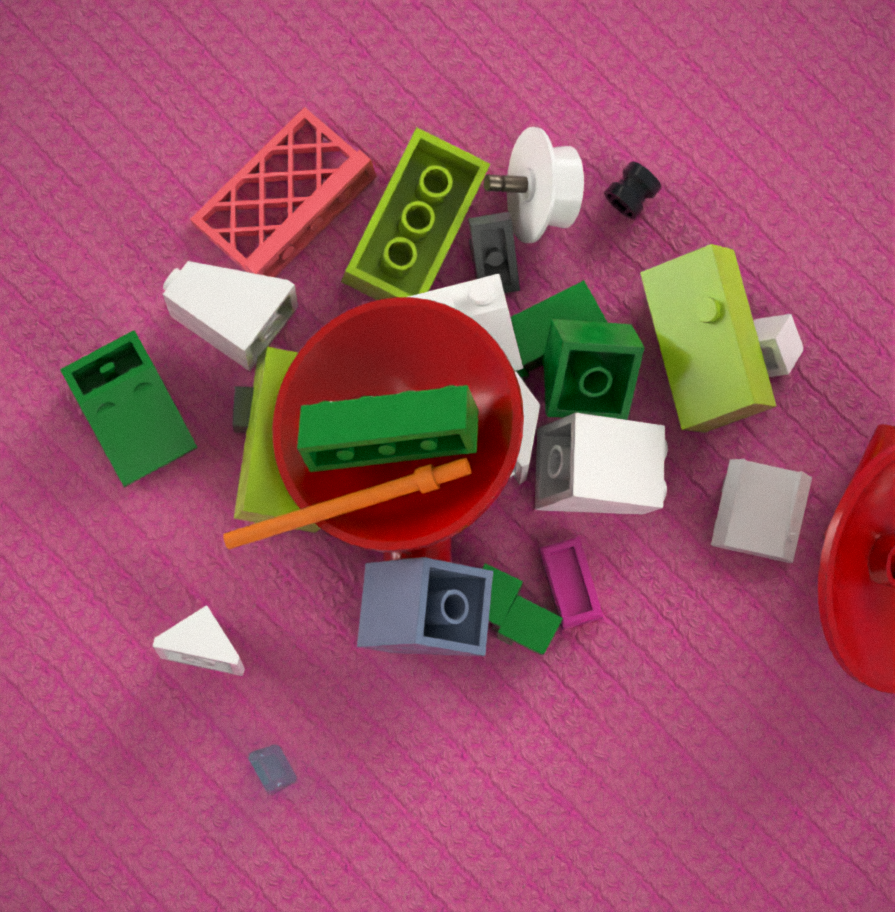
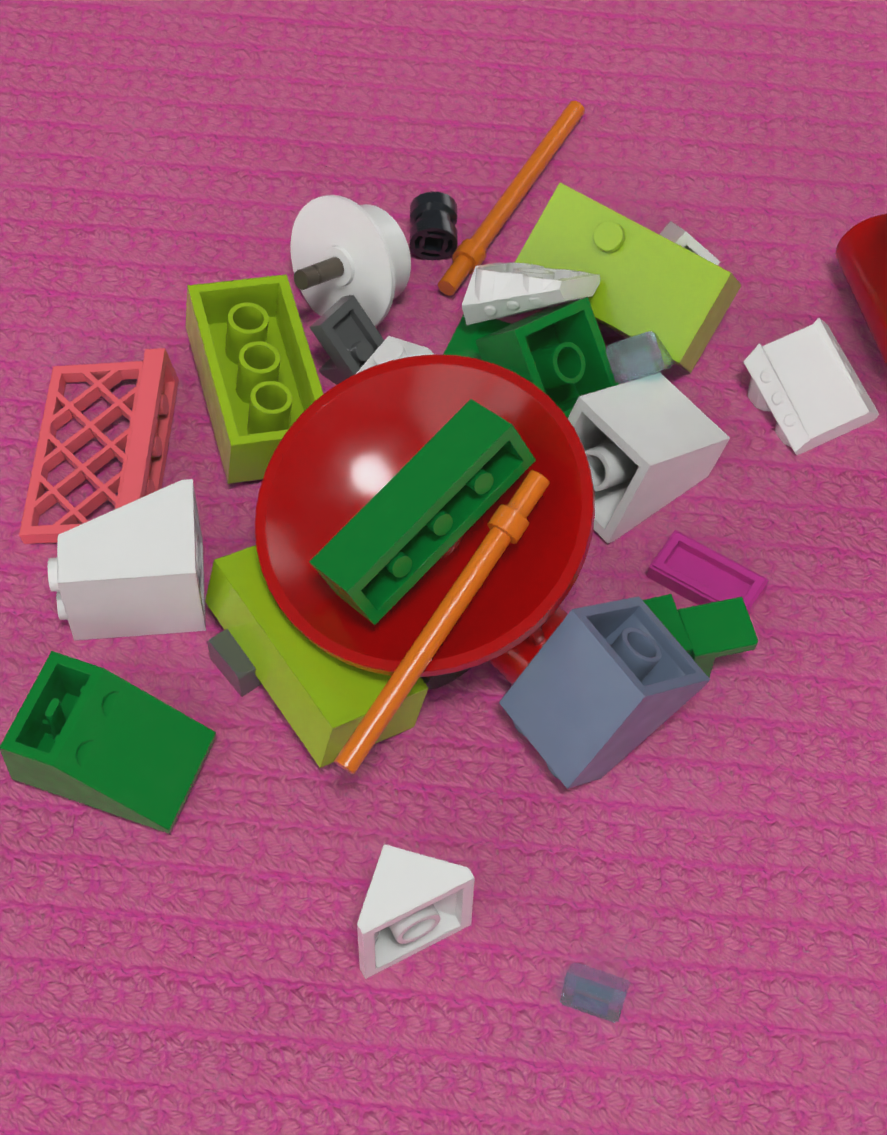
camera: 40 degrees left, 20 degrees down
(622, 304) = (517, 288): none -> white slope
(640, 230) = (473, 250): none -> orange bar
(649, 412) = (638, 357): none -> clear light blue slope

